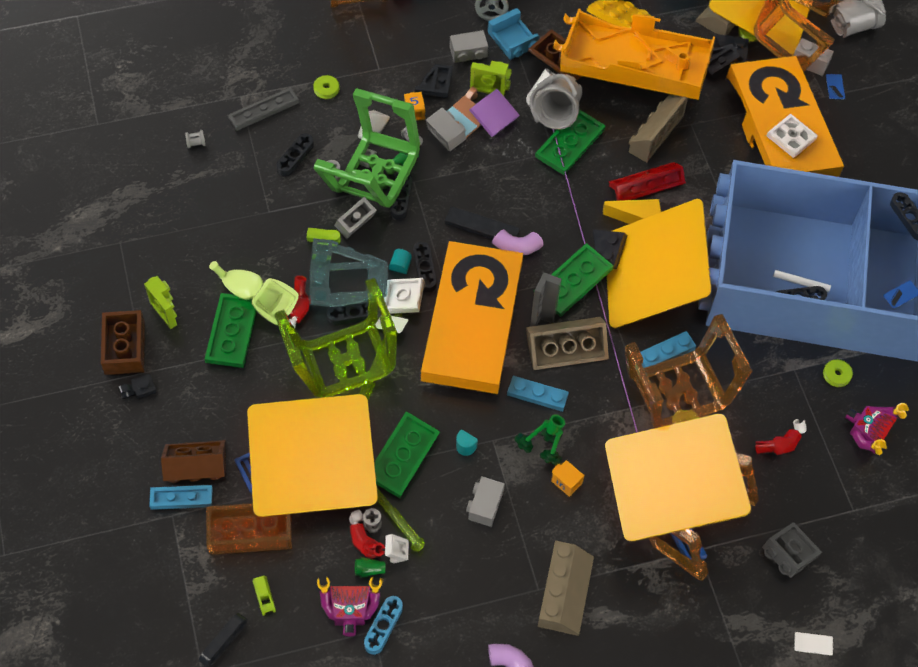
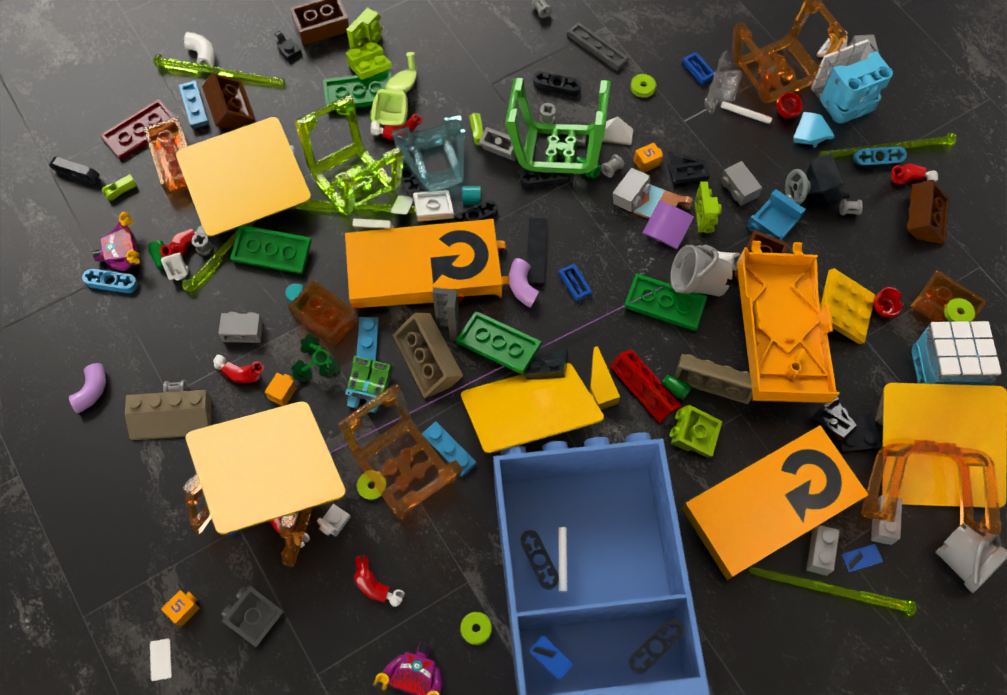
camera: 75 degrees right, 5 degrees up
(102, 523) = (159, 61): none -> clear neon green bar
(105, 471) = (202, 46): none -> white cylinder
(189, 563) = (129, 134): none -> tile
(199, 310) = (367, 60): none -> lime plate
(325, 40) = (696, 69): none -> blue tile
(356, 21) = (724, 84): none -> clear bracket
(390, 19) = (757, 116): none -> white bar
(414, 350) = (368, 225): none -> white tile
(497, 418) = (323, 313): none -> clear orange brick
(526, 207) = (582, 295): none -> blue tile
(537, 577) = (175, 386): none -> light grey bush
(539, 511) = (237, 374): none -> red arm
(585, 397) = (367, 381): none -> hips
(658, 157) = (677, 387): none -> green cone
(702, 157) = (695, 431): none -> lime plate
(771, 611) = (181, 607): none -> light orange brick
(792, 135) = (744, 507): white piece -> none
(831, 106) = (822, 550): none -> light grey brick
(882, 70) = (910, 606): none -> clear neon green bar

